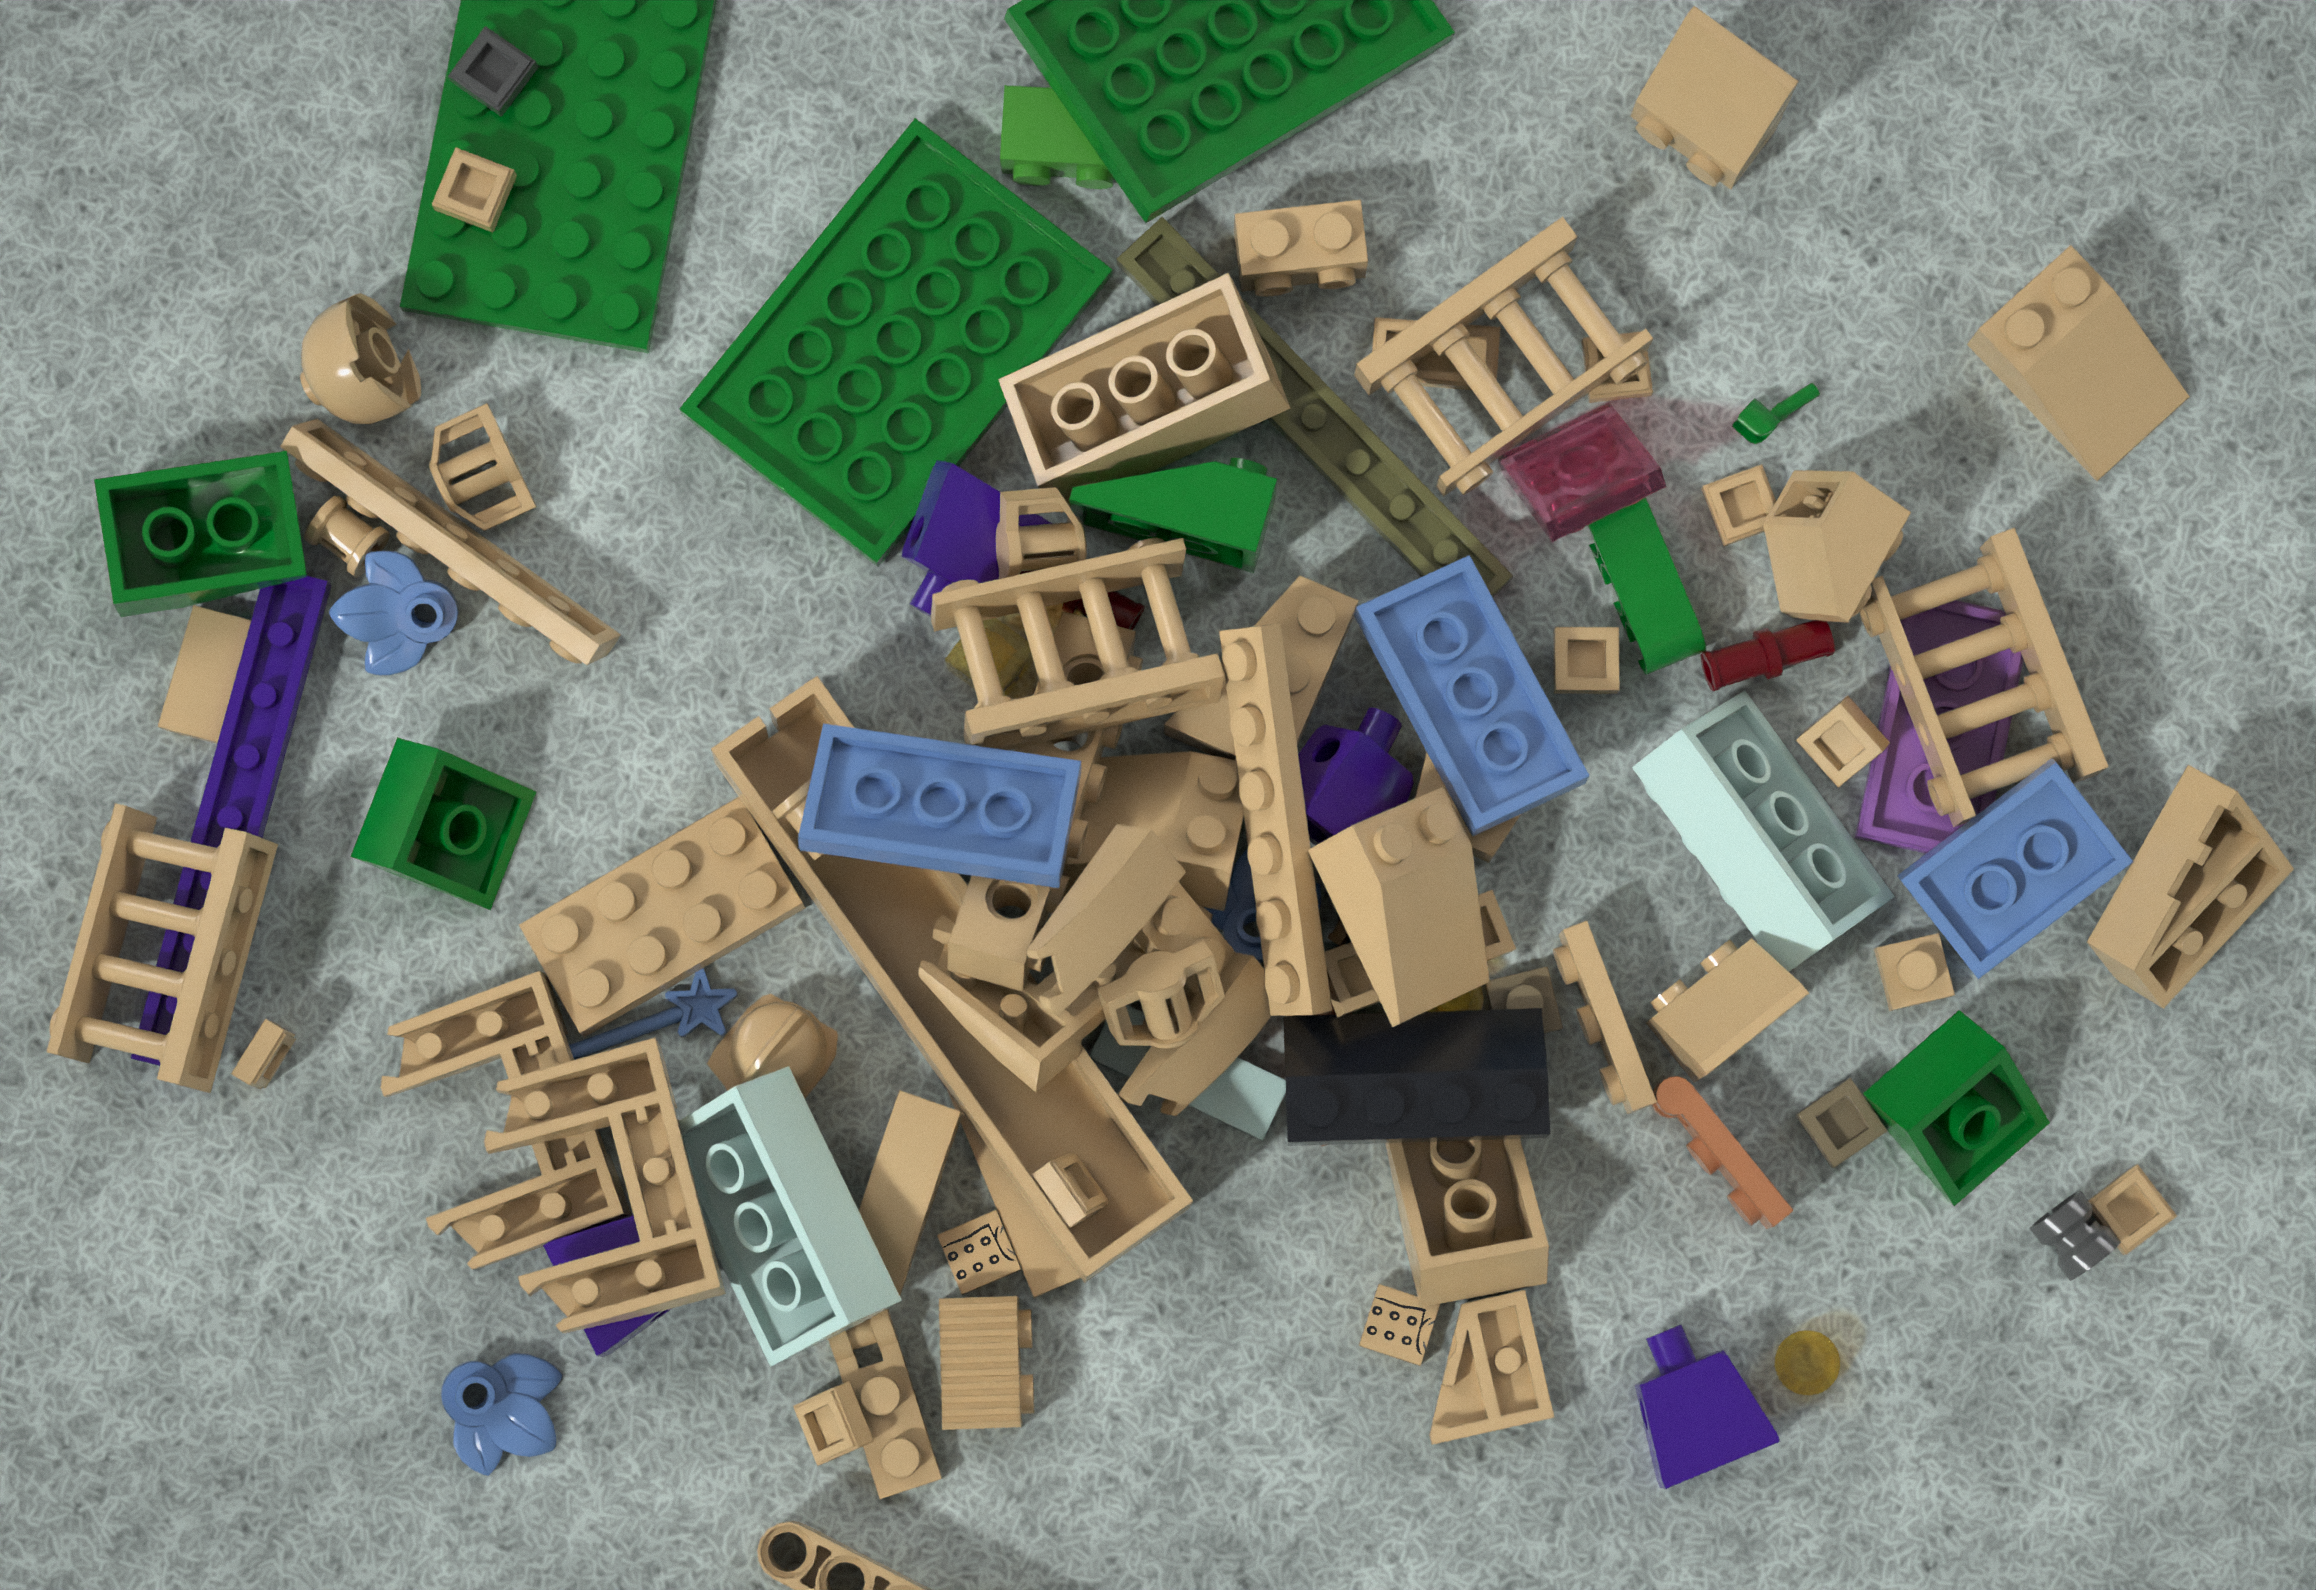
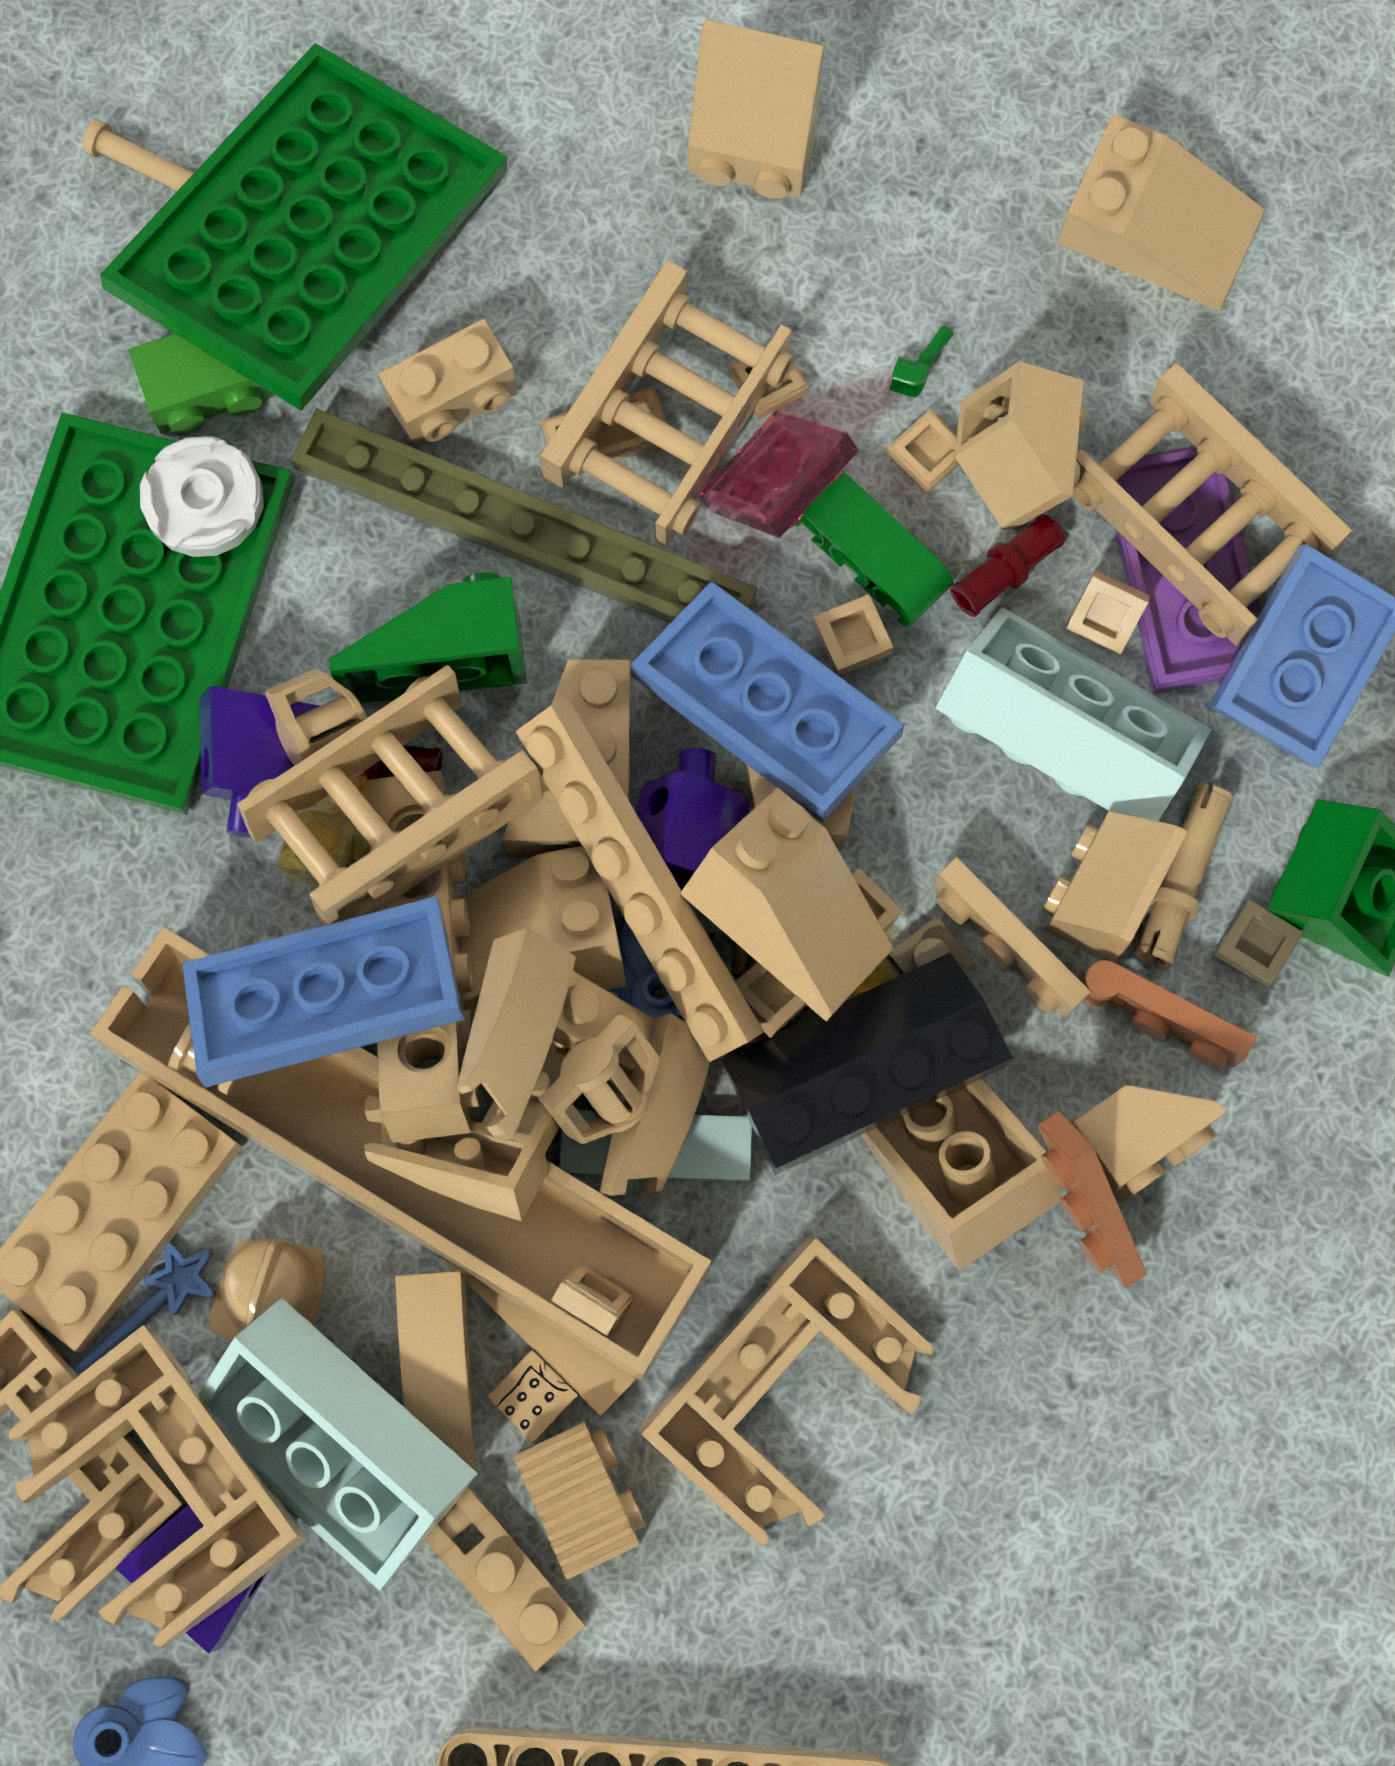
camera: 25 degrees left, 5 degrees down
(833, 1423) = (462, 1618): tan tile -> none
(1016, 262) = (201, 496): none -> white tile
(1145, 391) = (361, 554): tan slope -> none
(1264, 1270) = (699, 1415): none -> tan wedge
(1398, 1325) = (945, 1297): tan tile -> none
(1491, 1371) = (1049, 1303): tan wing -> none
(1564, 1295) = (1090, 1200): none -> nougat plate
(1636, 1250) = (1142, 1128): none -> tan slope
(1697, 1411) = (1251, 1258): dark purple torso -> none
(1782, 1046) = (1177, 894): none -> tan pin
(1807, 1362) = (1326, 1171): clear yellow plate -> none
(1914, 972) = (1260, 785): tan plate -> none

